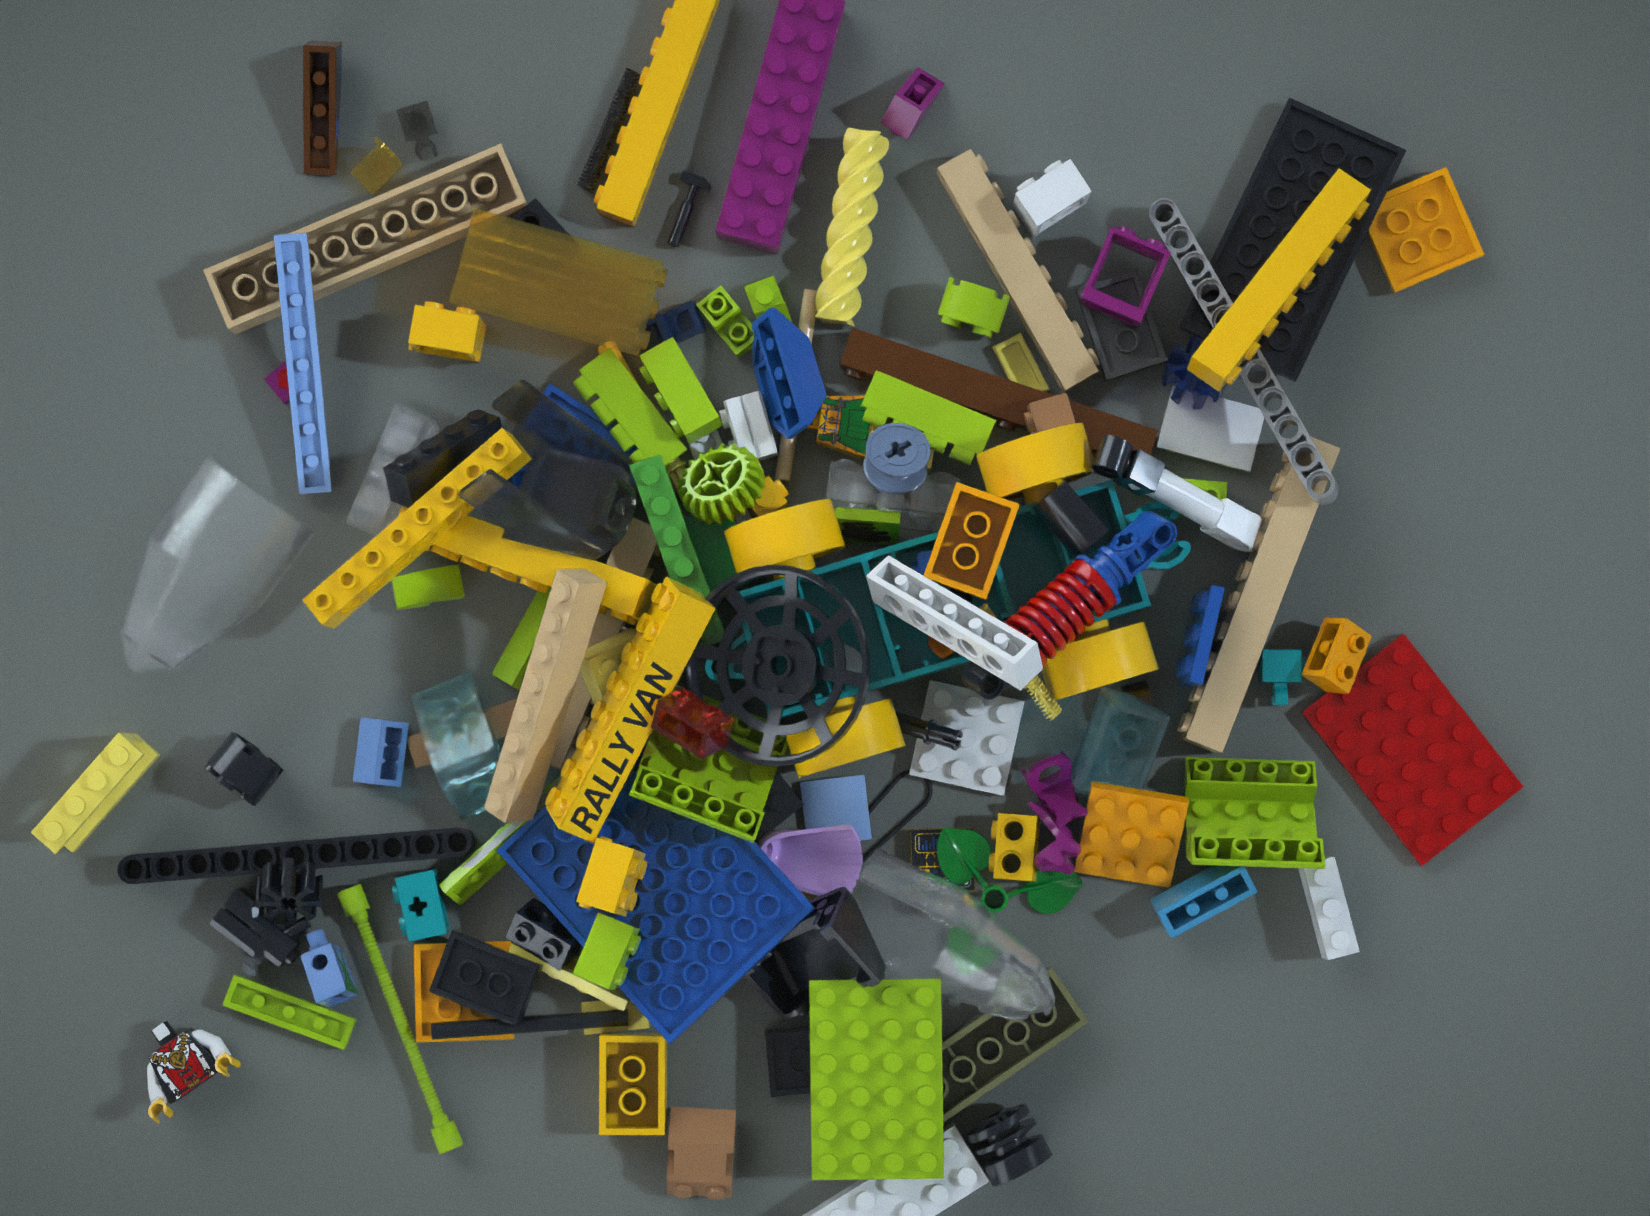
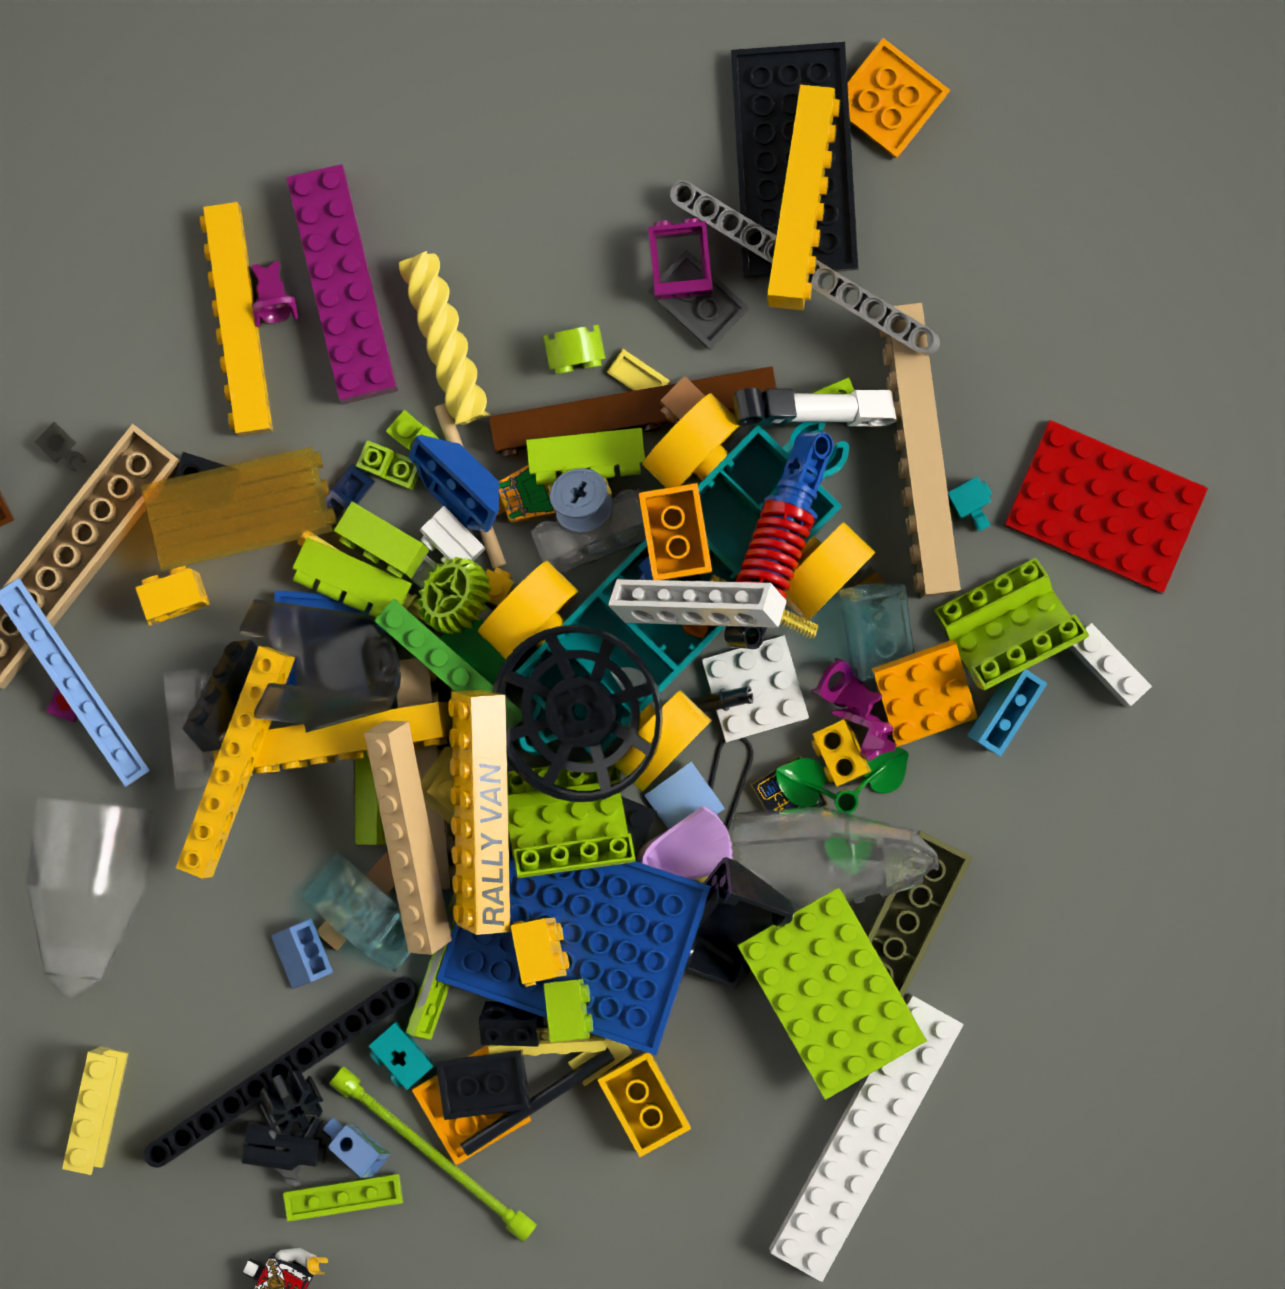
camera: 35 degrees left, 0 degrees up
(244, 768) = (201, 1026): black brick -> none
(377, 167) = (44, 495): clear yellow bracket -> none
(427, 586) = (267, 803): lime slope -> none
(608, 130) = (210, 366): black axle -> none
(687, 206) = (306, 393): black piece -> none
(692, 723) = (536, 794): clear red brick -> none
(701, 1152) = (727, 1127): medium nougat piece -> none
(703, 101) = (272, 303): none -> magenta hair
(789, 1061) = (756, 1017): black tile -> none
(868, 525) = (588, 564): lime tile -> none
(911, 103) = (438, 215): magenta slope -> none
(1007, 1141) = (965, 988): black wheel -> none
(1017, 271) = (593, 301): tan brick -> none
(1050, 197) = (588, 230): white brick -> none
(1070, 518) = (742, 473): black brick -> none
(1177, 373) = (763, 313): clear blue gear -> none
(1199, 636) = (893, 509): blue plate -> none
(1217, 433) = (812, 342): white tile -> none
(1338, 653) = (1007, 465): light orange brick -> none

